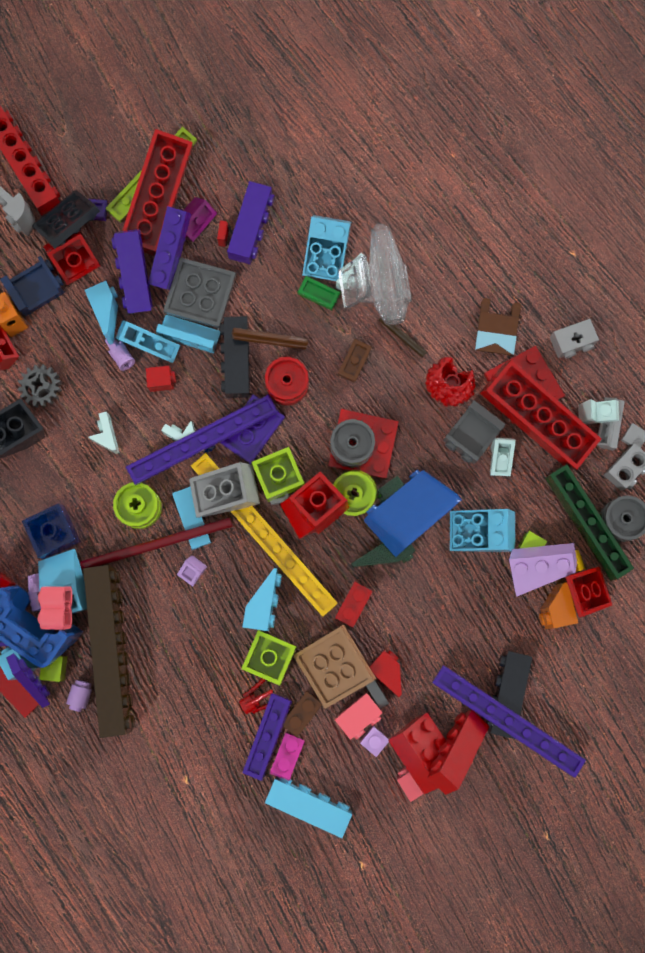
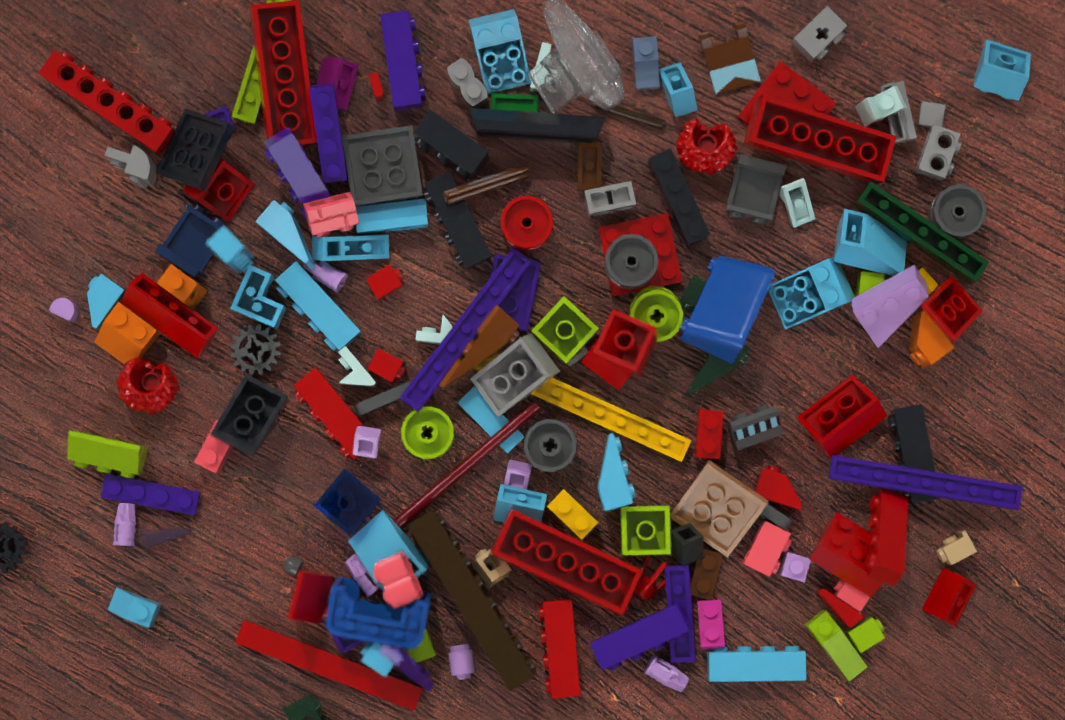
camera: 30 degrees left, 5 degrees up
(51, 299) = (231, 250): none -> medium azure brick
(55, 345) = (252, 299): none -> medium azure brick
(75, 460) = (329, 408): none -> red brick
(86, 490) = (366, 442): none -> lavender slope
(101, 373) = (318, 306): none -> medium azure brick
(111, 465) = (380, 400): none -> dark grey beam
(131, 441) = (386, 366): none -> red brick
(141, 308) = (331, 214): none -> coral brick
(141, 624) = (499, 568): none -> tan brick
(160, 721) = (561, 648): none -> red brick
(181, 595) = (521, 500): none -> medium azure panel
(195, 654) = (565, 562): none -> red brick
(217, 549) = (554, 432): none -> dark grey wheel
(218, 619) = (572, 514): none -> yellow brick
(220, 452) = (491, 337): none -> dark orange wedge
(226, 740) = (640, 636): none -> dark purple brick
(234, 780) = (666, 674): none -> lavender hinge
(255, 298) = (450, 146): none -> black brick
(290, 260) = (471, 89): none -> light grey brick
(296, 683) = (686, 544): none -> pearl dark grey brick
(328, 312) = (536, 125): none -> black piece
(358, 390) = (609, 199): none -> light grey brick
(379, 819) = (836, 644): none -> lime slope
(392, 616) = (754, 428): none -> dark grey slope
(397, 794) = (846, 614): none -> red slope
(407, 822) = (866, 634): none -> lime brick
(411, 413) = (678, 198): none -> black brick
(432, 302) = (645, 63): none -> sand blue arch
(447, 333) = (678, 89): none -> medium azure slope
(465, 638) = (842, 416): none -> red slope
(487, 822) = (949, 597): none -> red panel
(510, 786) = (956, 548): none -> tan brick
(543, 513) = (868, 244): none -> medium azure slope

